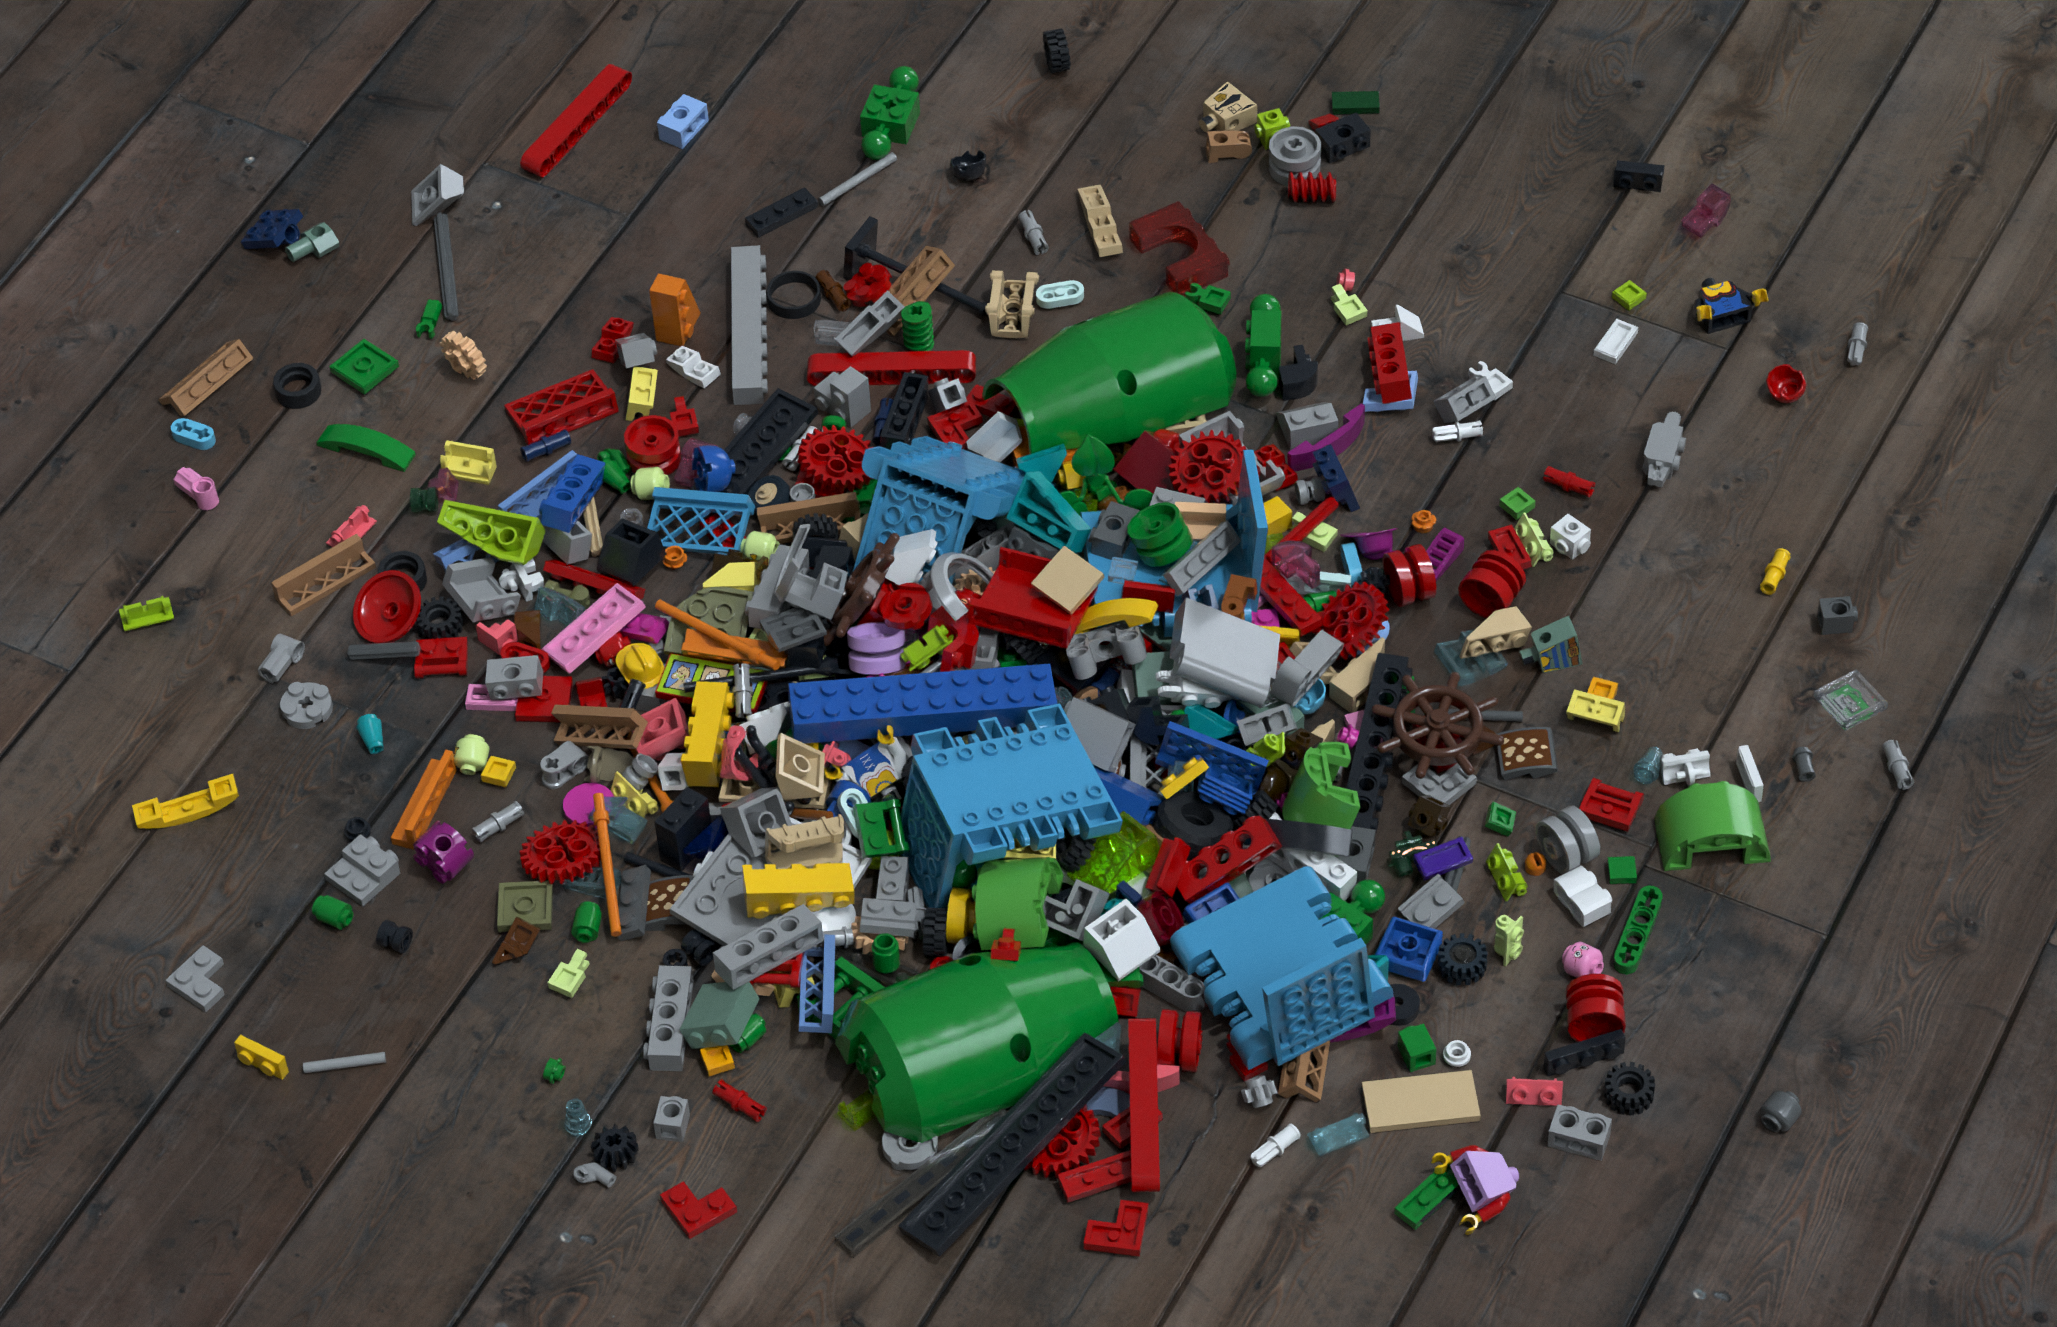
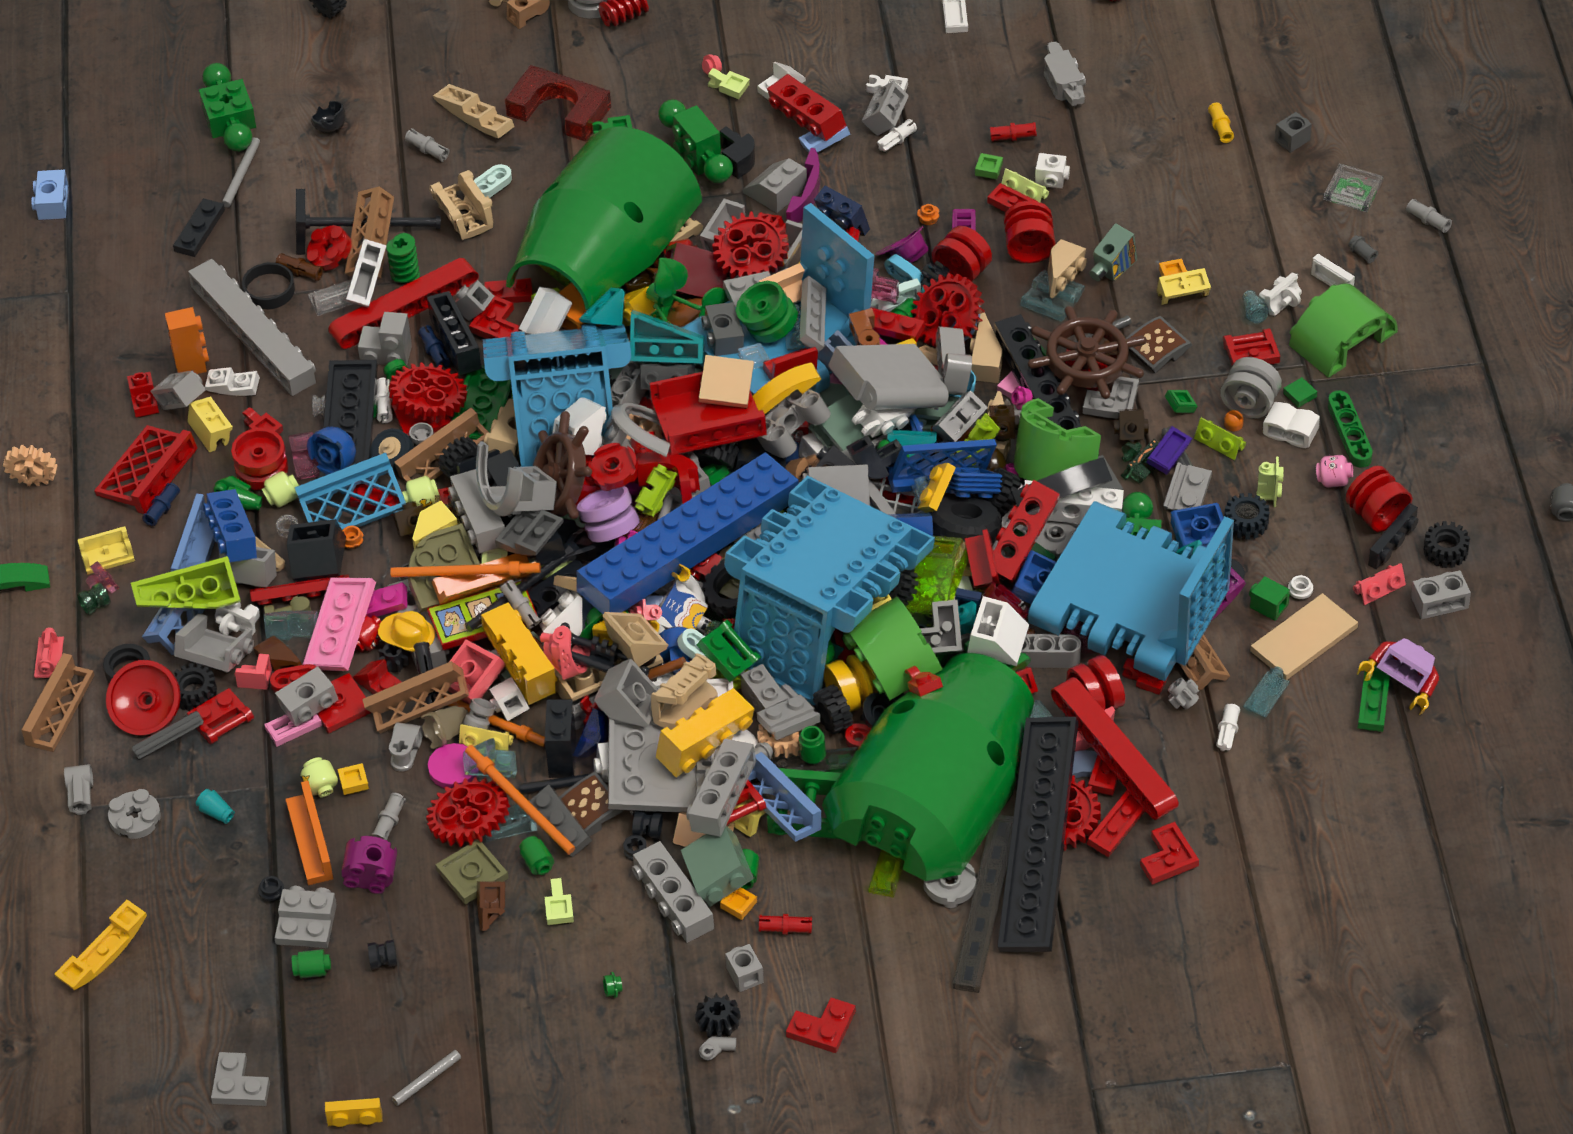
camera: 35 degrees left, 0 degrees up
(577, 1118) = (666, 1010): clear light blue cone -> none

